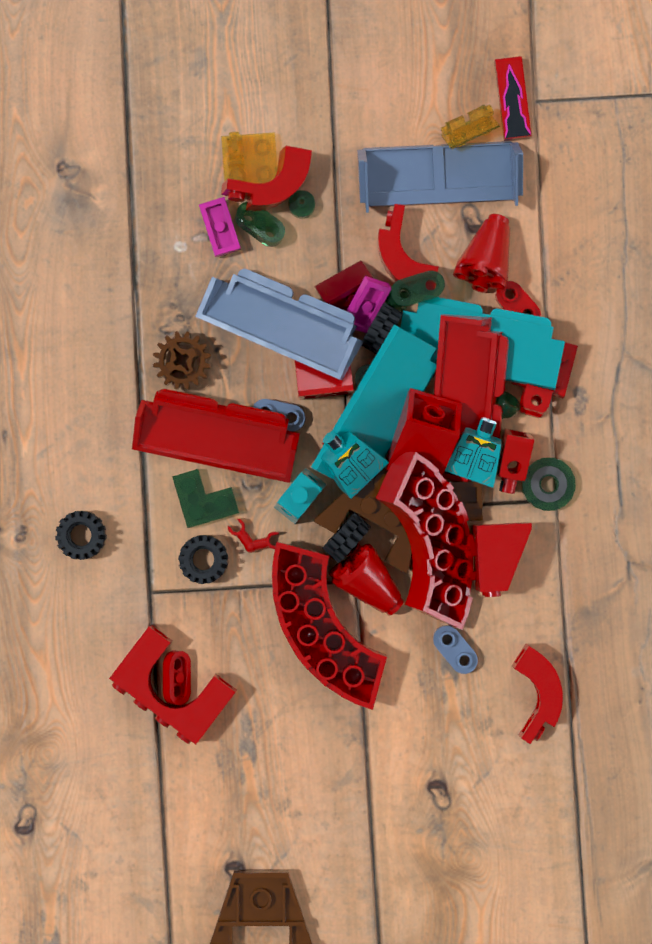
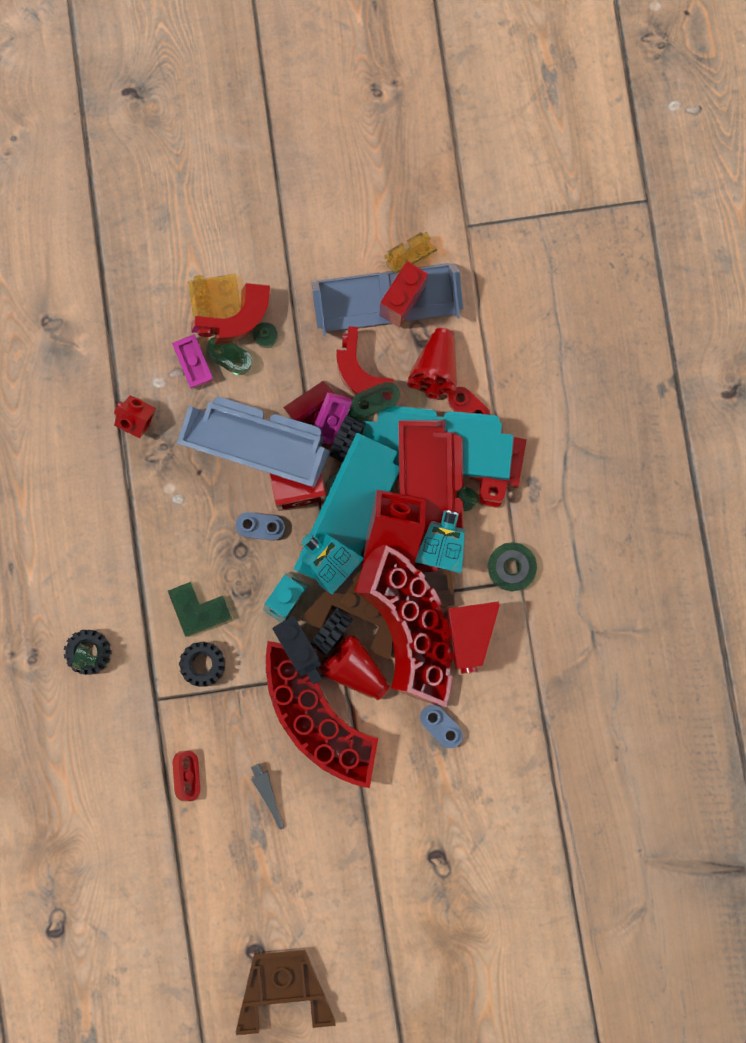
camera: 10 degrees left, 5 degrees down
(76, 542) = (83, 657): none -> clear green tile
(134, 677) = (147, 779): red arch -> none
(151, 282) = (134, 416): none -> red brick
(193, 353) = (158, 491): reddish brown gear -> none
(216, 434) = (204, 549): red slope -> none
(250, 544) = (241, 644): red arm -> none
(257, 691) = (263, 785): none -> dark grey piece
(309, 553) = (298, 648): none -> black hinge
(458, 173) = (403, 294): none -> red brick
(512, 98) = (446, 225): tile -> none
(514, 447) = (478, 535): red torso -> none
(548, 691) = (530, 755): red arch -> none

